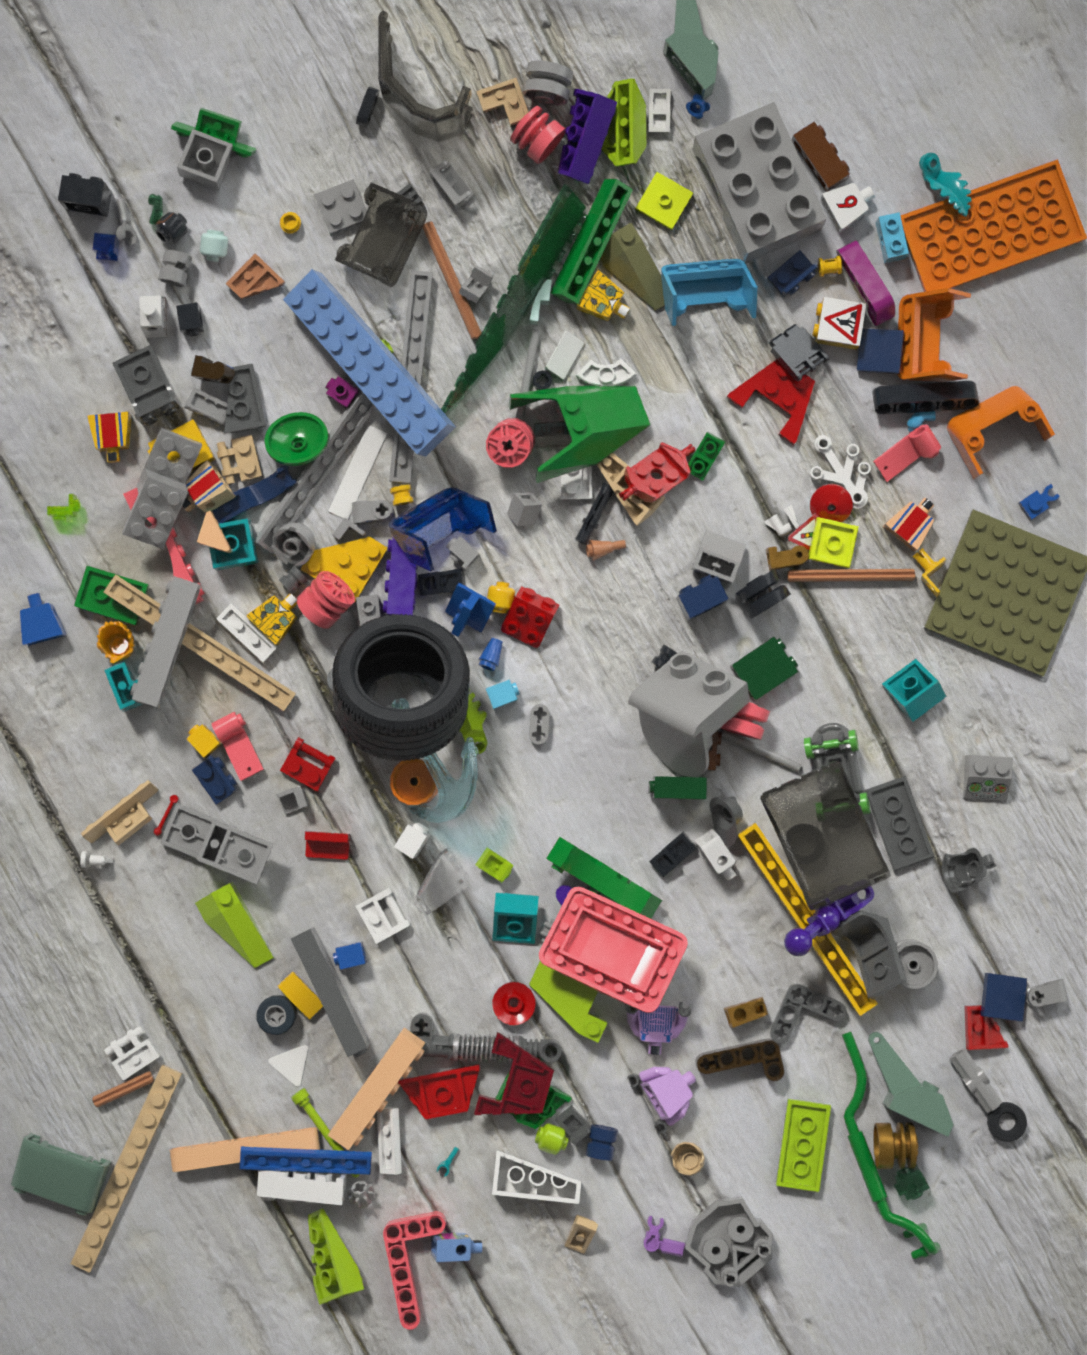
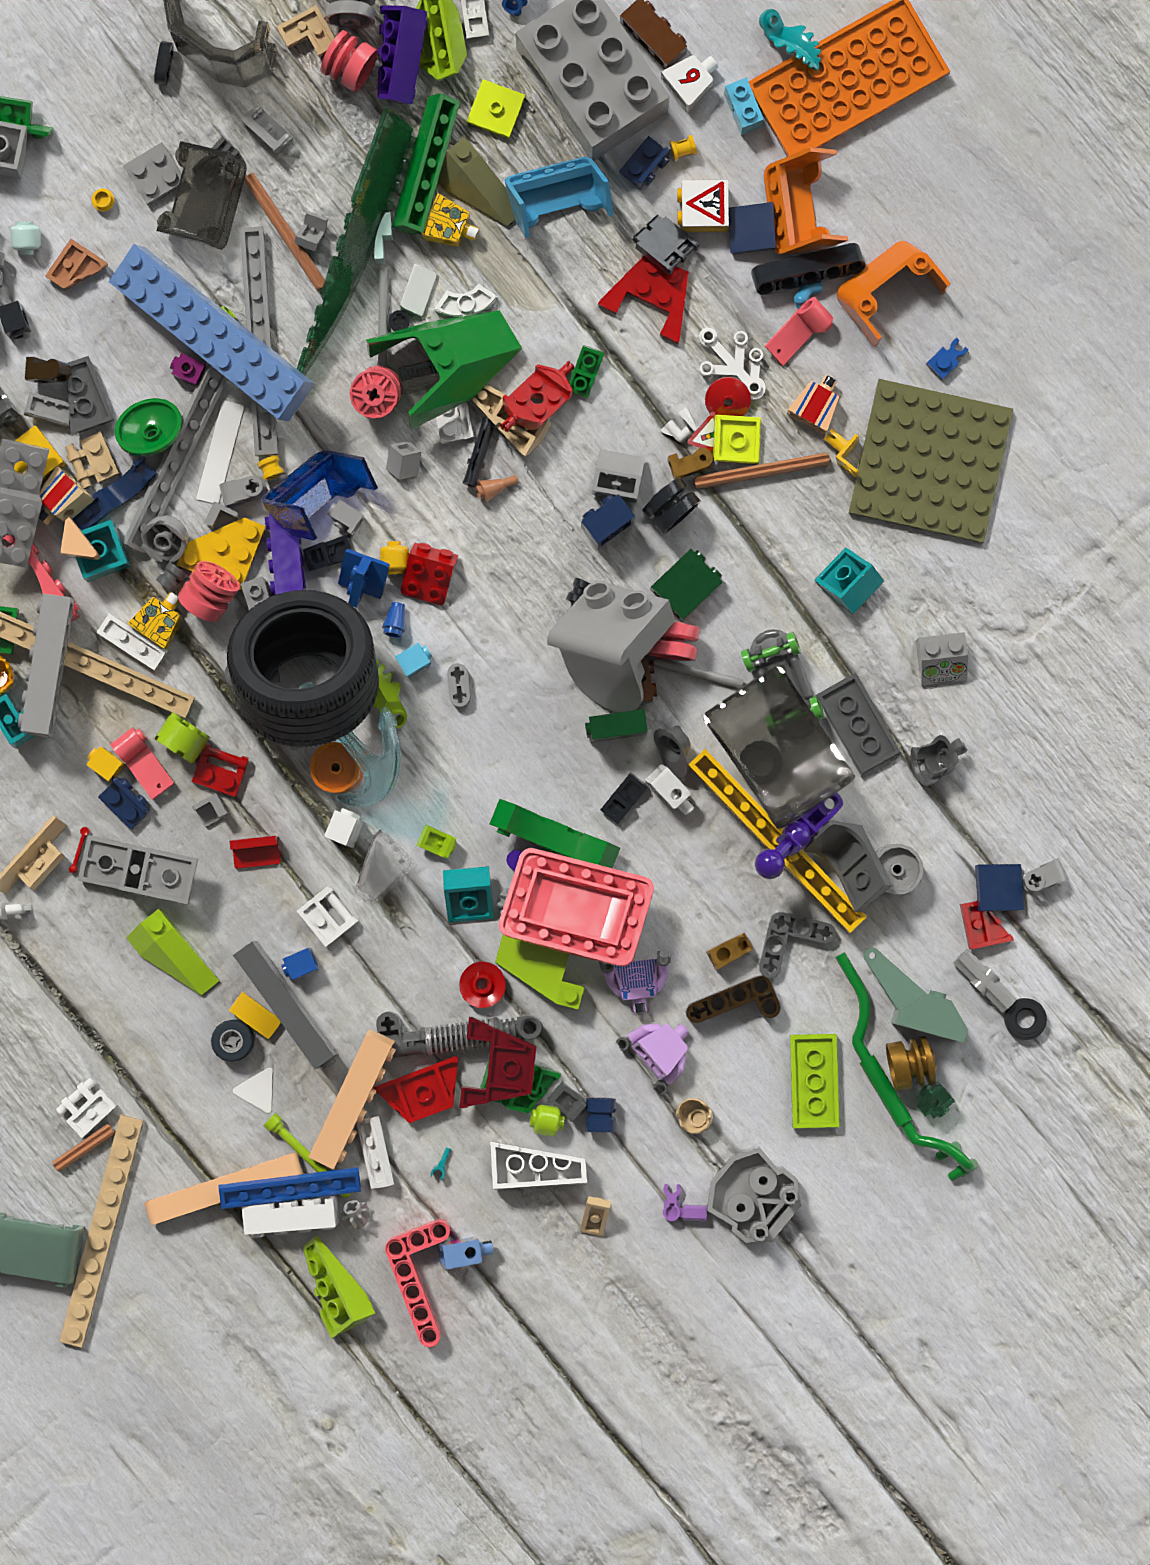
camera: 10 degrees left, 0 degrees up
(278, 729) = (182, 737): none -> lime brick
(868, 283) = (727, 158): magenta beam -> none

